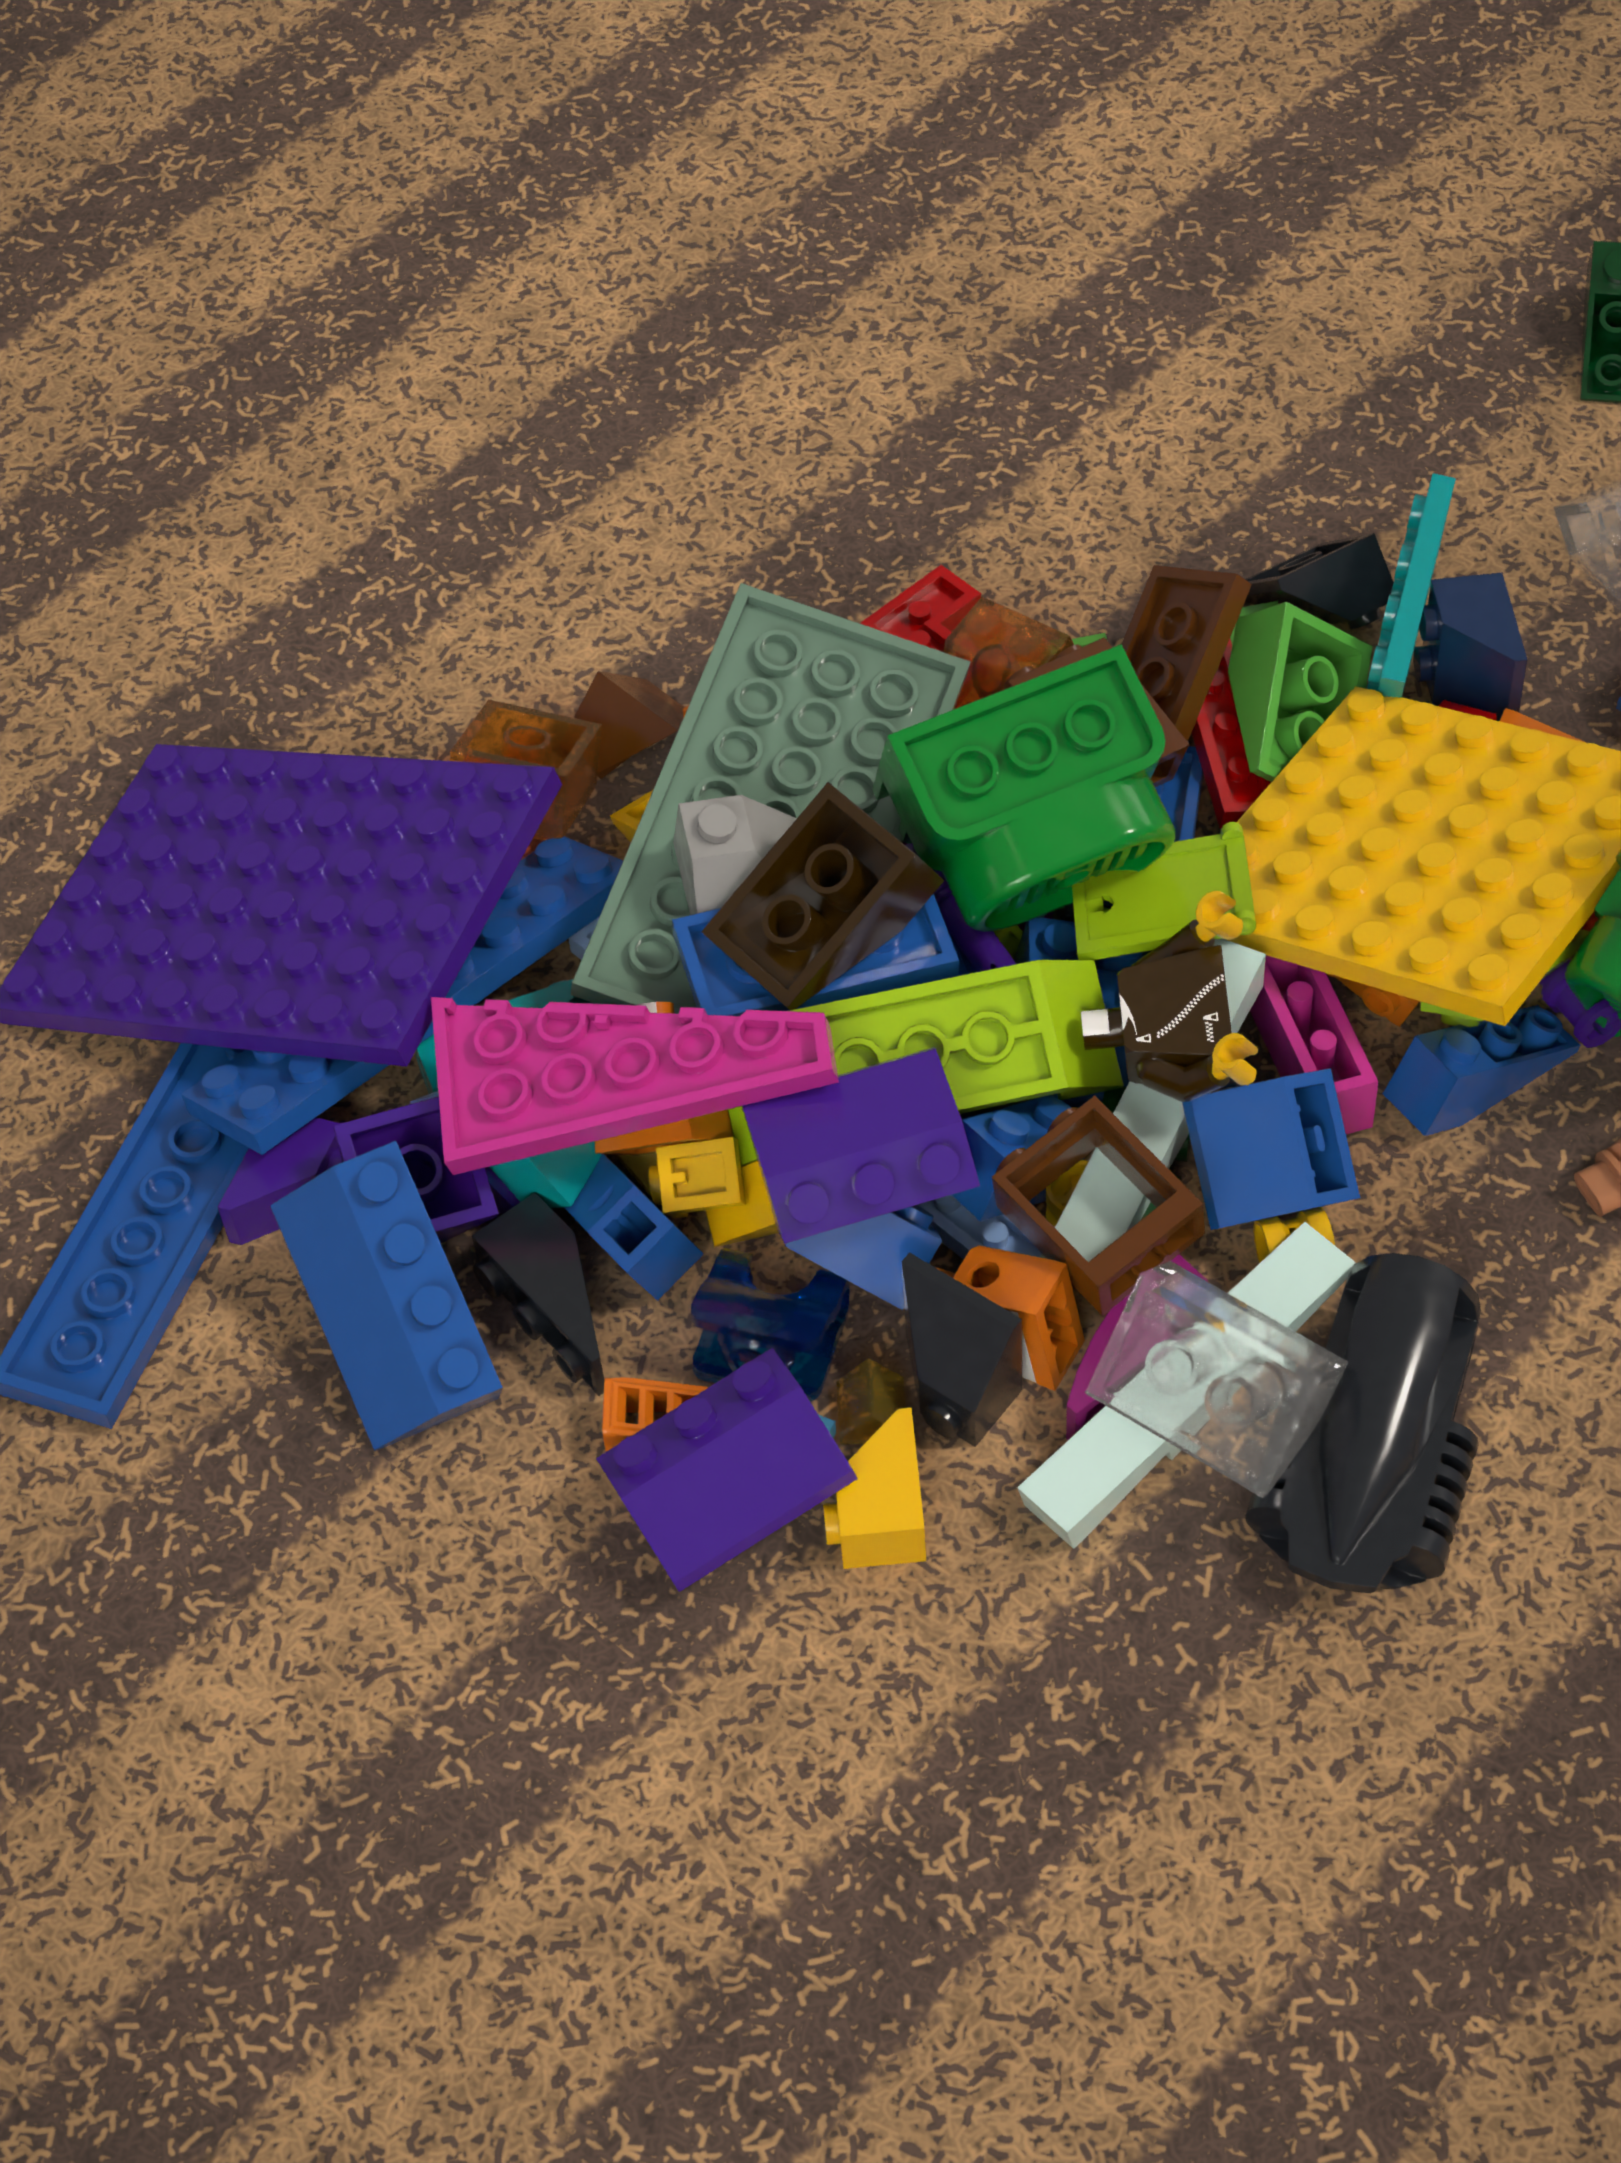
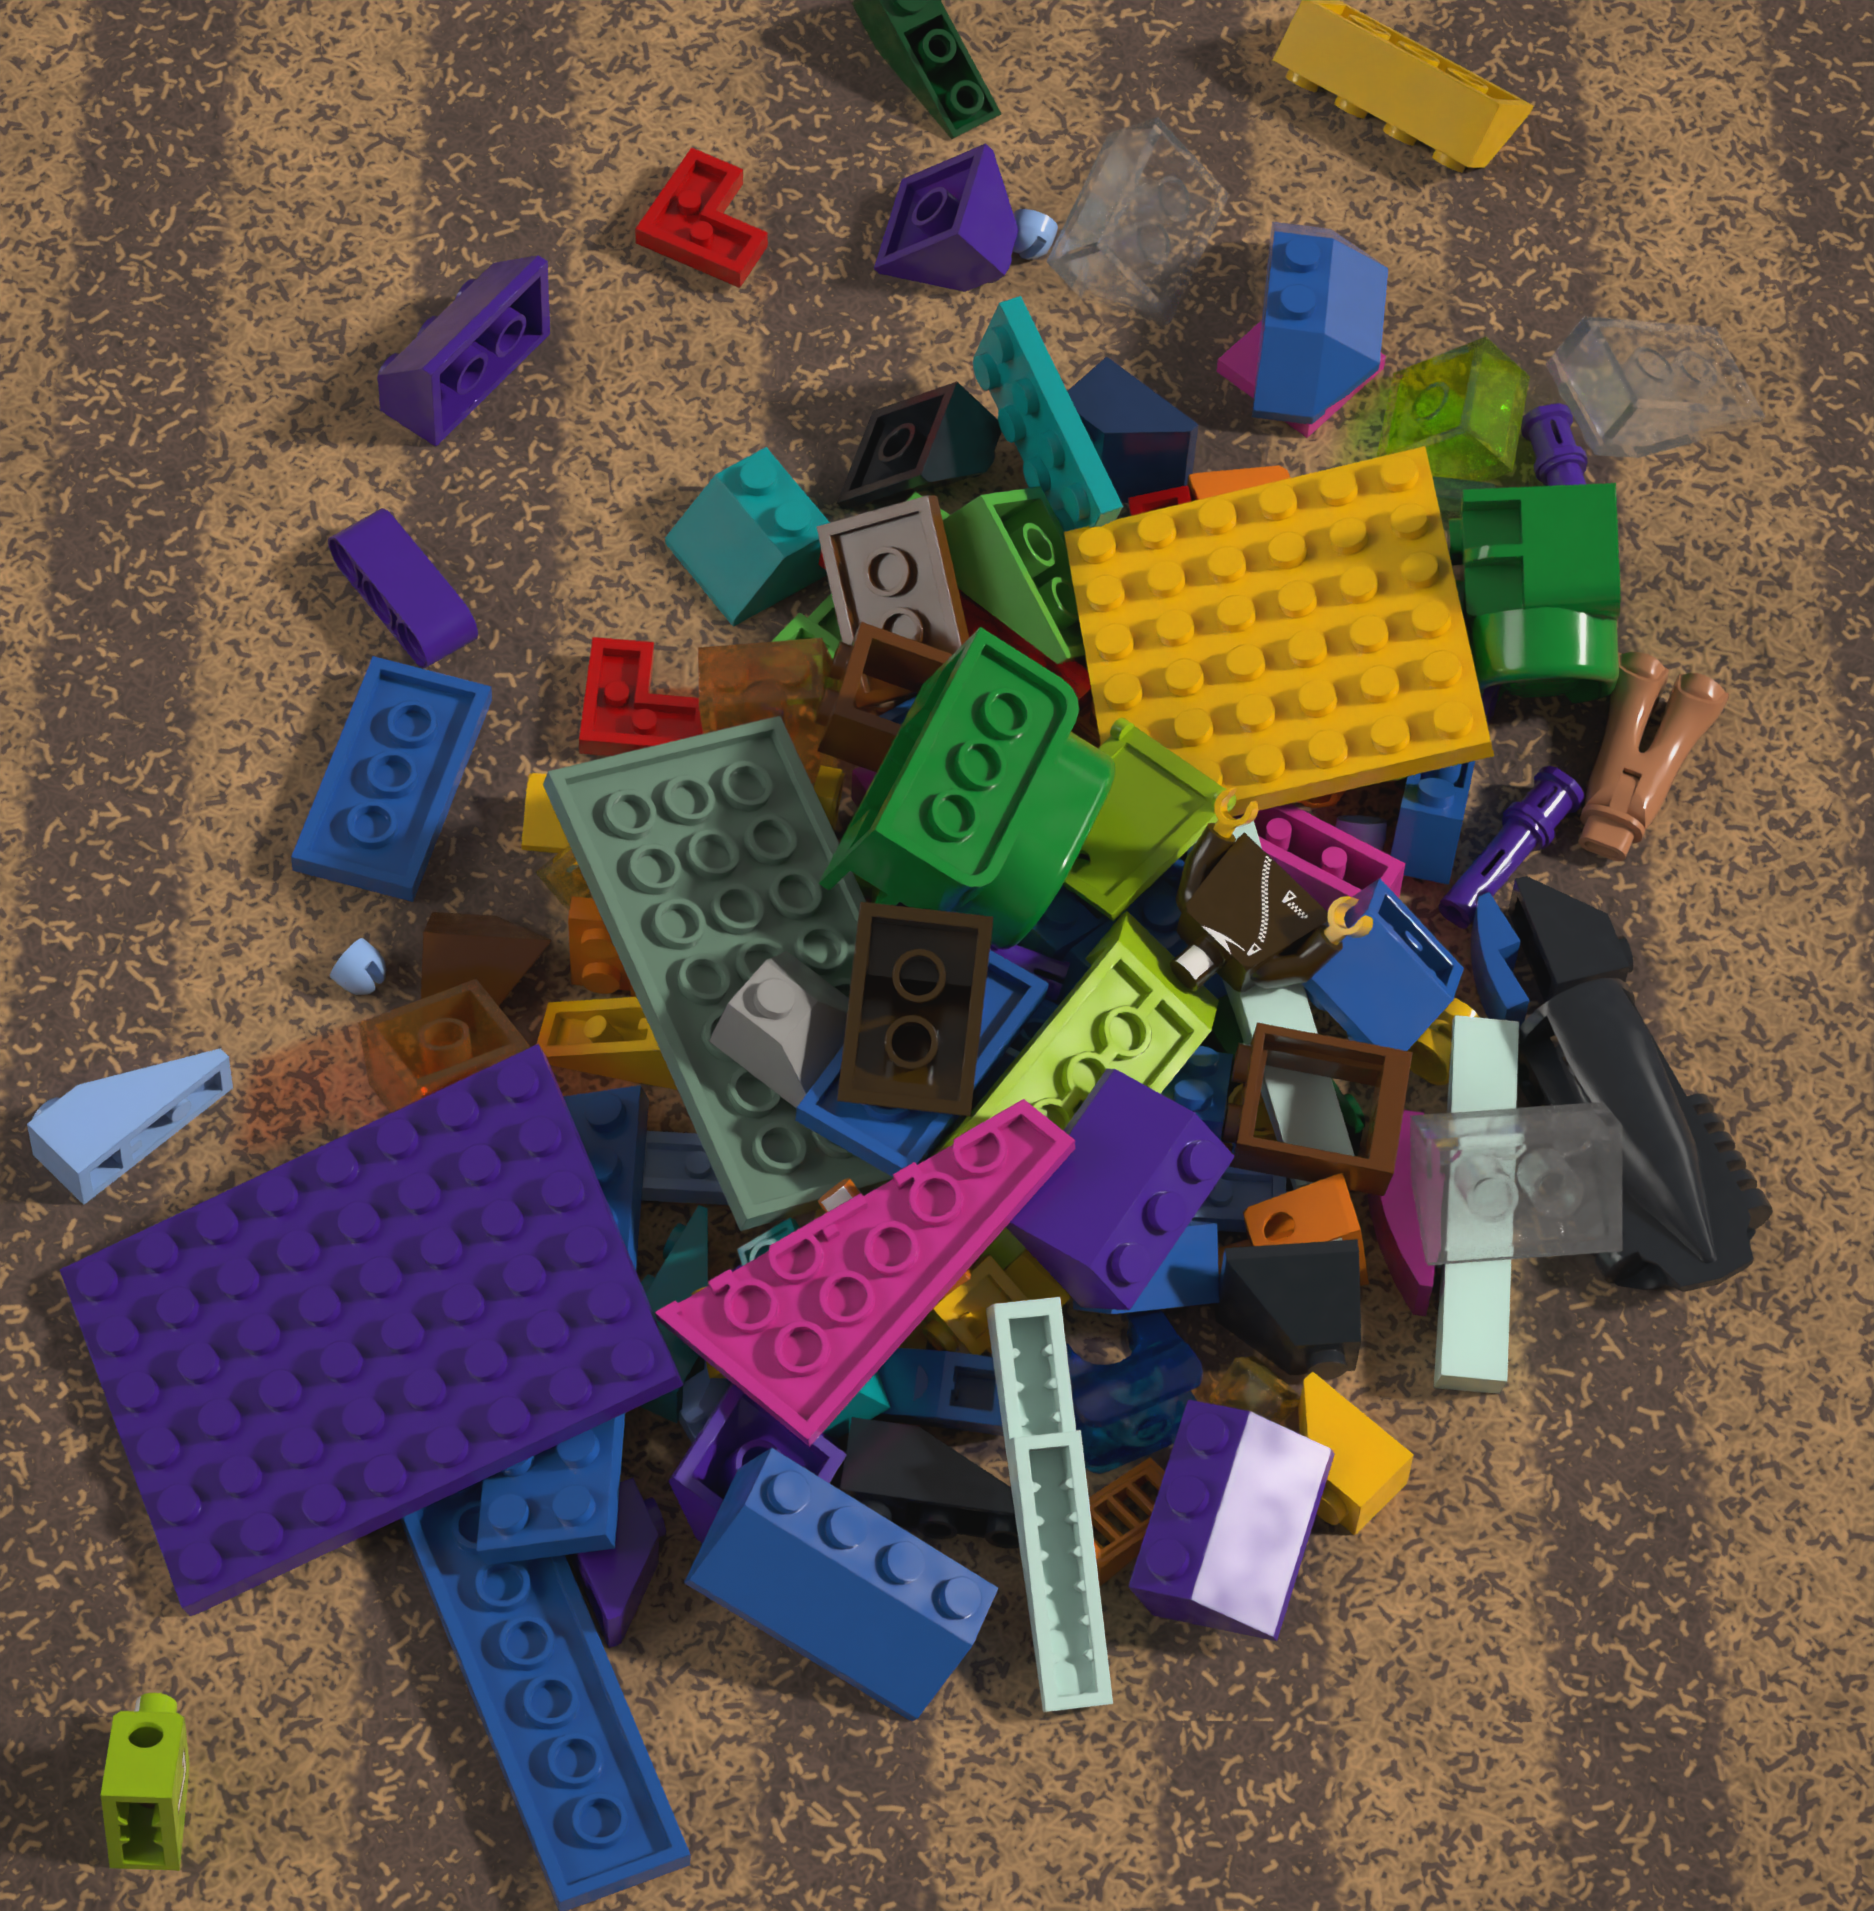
camera: 50 degrees left, 5 degrees up
(294, 675) = (120, 1119): none -> light blue slope
(553, 679) = (359, 968): none -> light blue hinge
(599, 1350) = (1050, 1502): none -> light aqua slope
(692, 578) = (392, 779): none -> blue plate
(847, 461) = (403, 588): none -> dark purple beam
(1054, 335) = (467, 348): none -> dark purple slope
(1116, 559) = (750, 537): none -> teal slope
(1313, 345) = (691, 223): none -> red plate
(1385, 1053) = (1365, 828): none -> hinge
(1403, 1207) = (1493, 962): none -> blue slope
(1482, 1241) = (1565, 938): none -> black slope
(1507, 450) = (951, 224): none -> dark purple slope
(1536, 1136) = (1525, 829): none -> dark purple pin
(1566, 483) = (1034, 234): none -> light blue hinge

